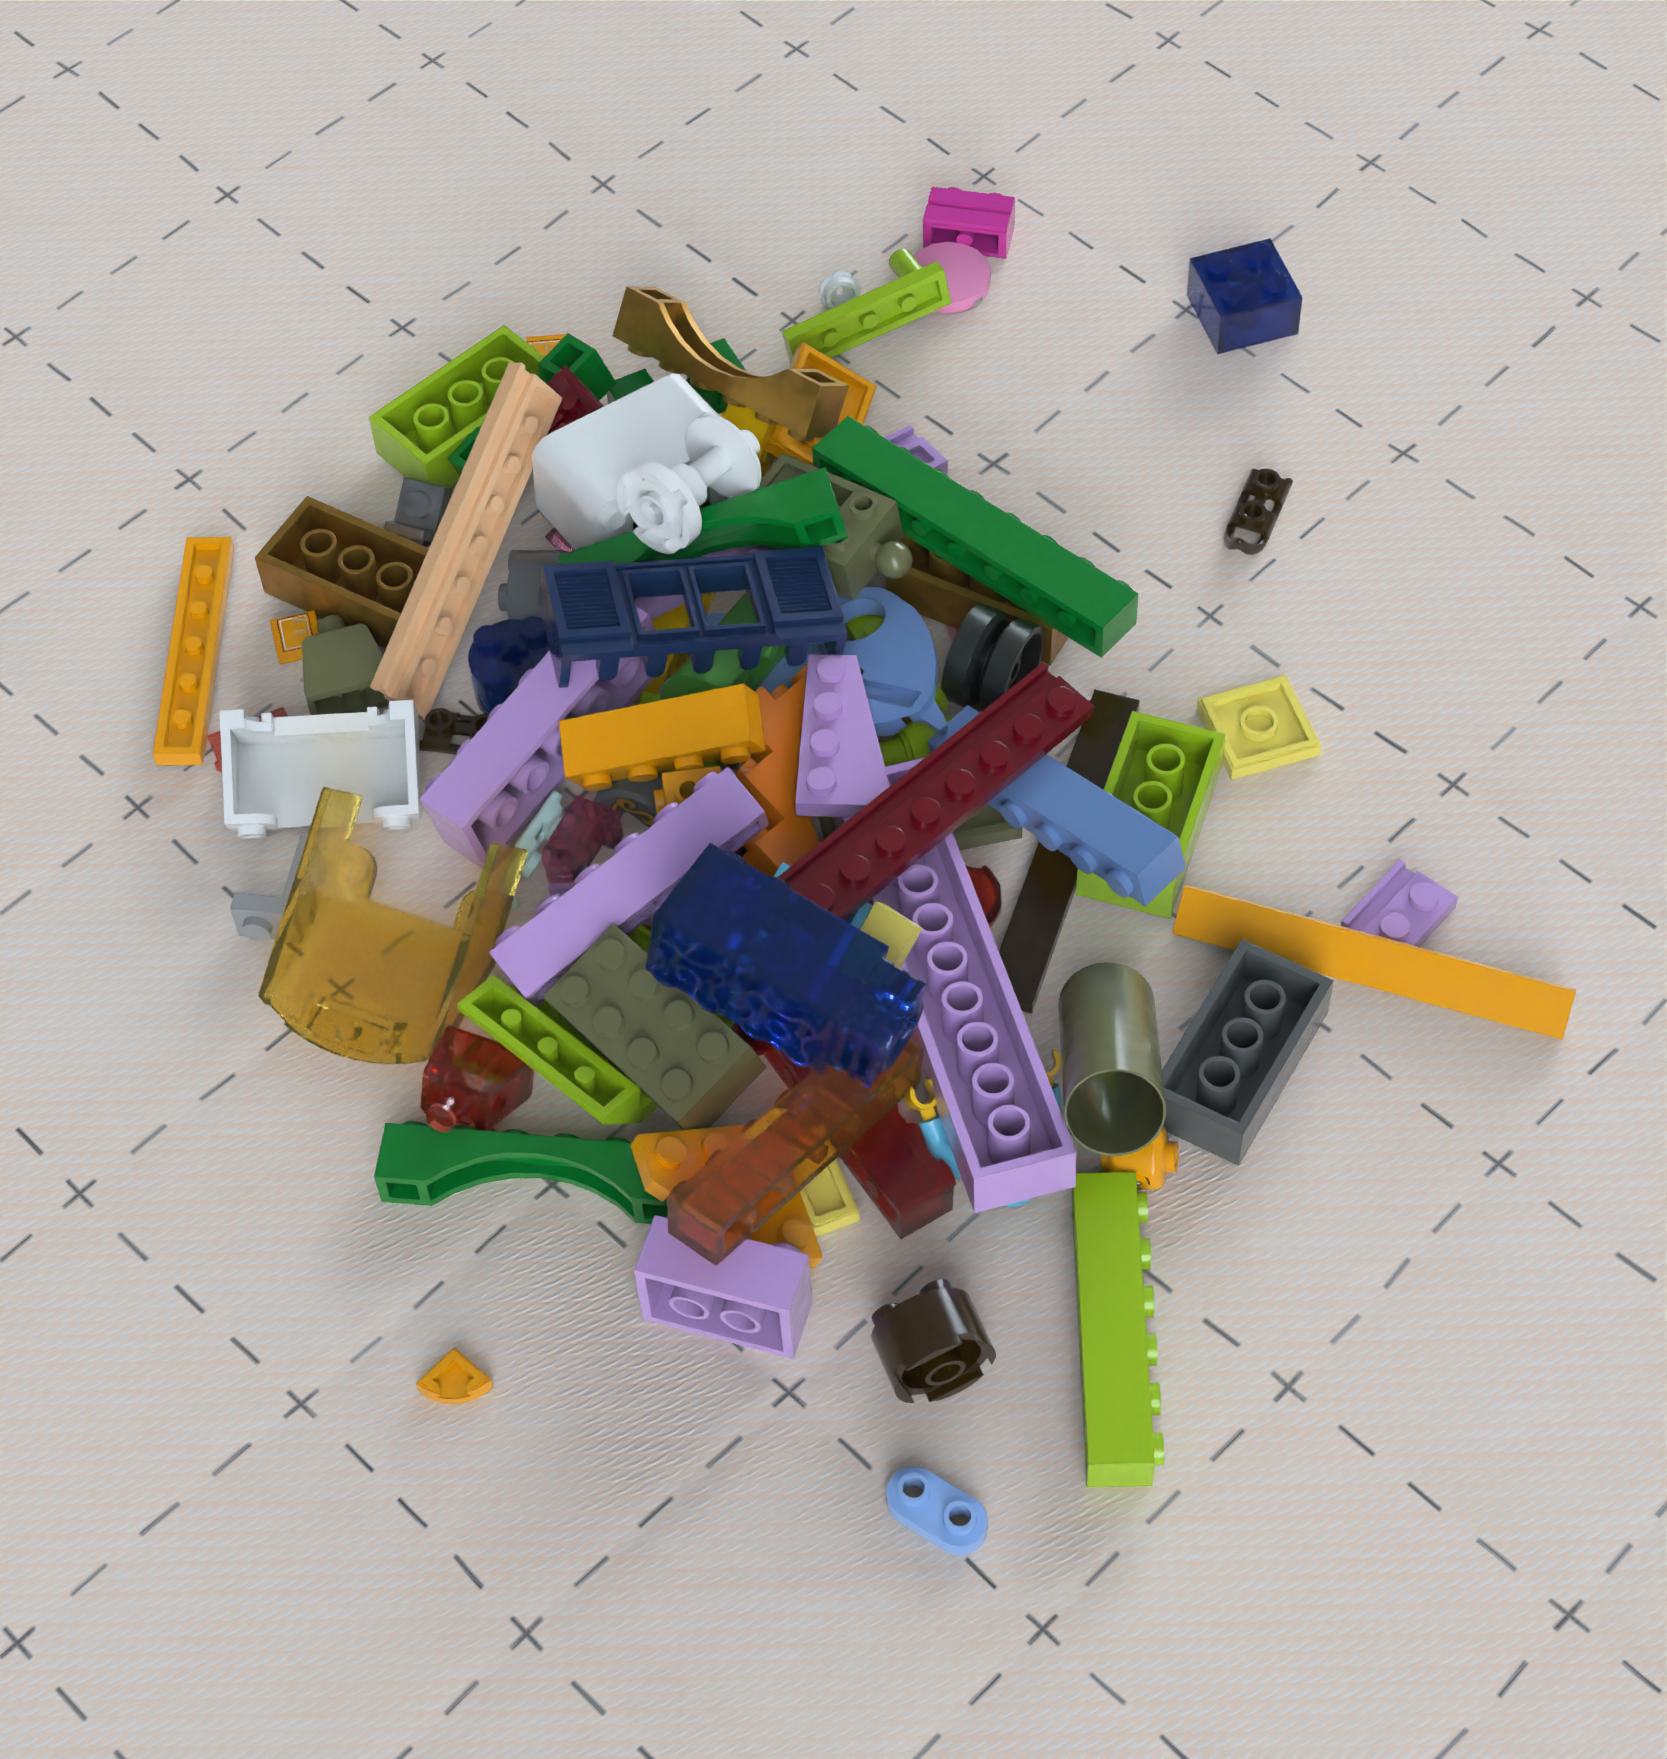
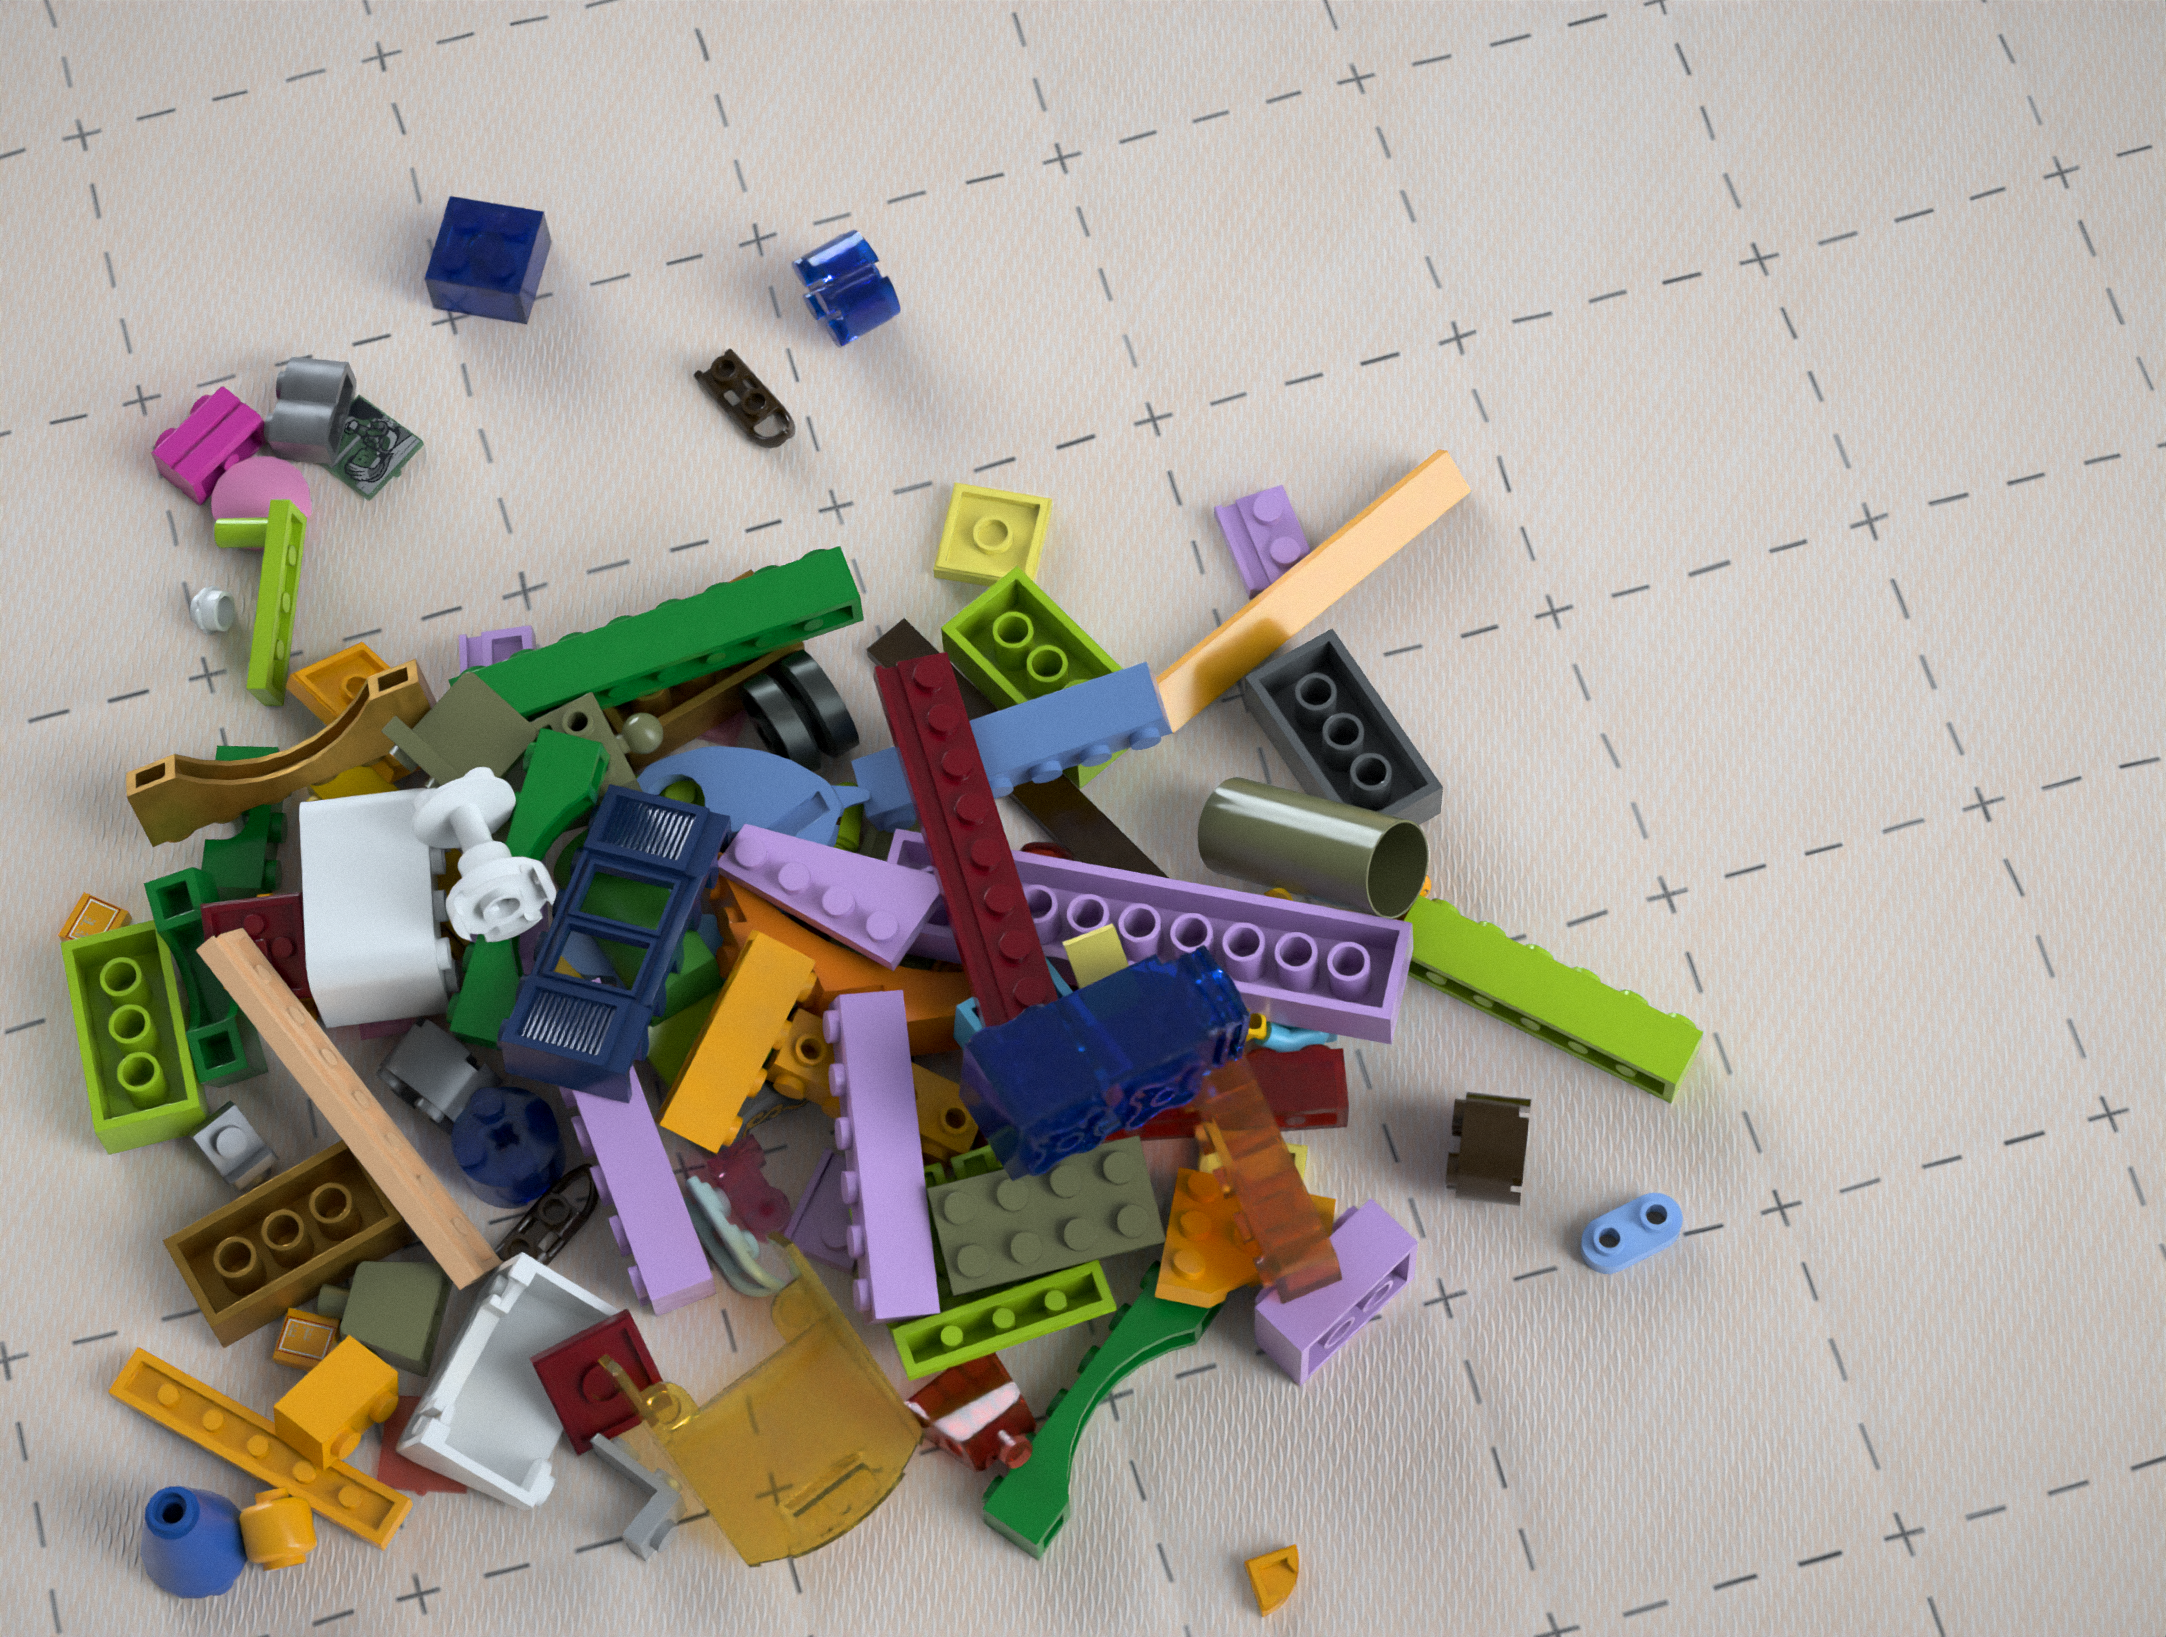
camera: 60 degrees left, 10 degrees up
(95, 635) = (192, 1542): none -> blue cone
(130, 686) = (278, 1530): none -> light orange head
(245, 667) = (337, 1403): none -> light orange brick
(381, 816) = (580, 1387): none -> dark red tile
(794, 439) = (461, 733): none -> olive bracket
(1039, 313) = (372, 449): none -> piece
(1041, 262) = (310, 410): none -> flat silver brick
(1392, 511) = (846, 287): none -> clear blue brick

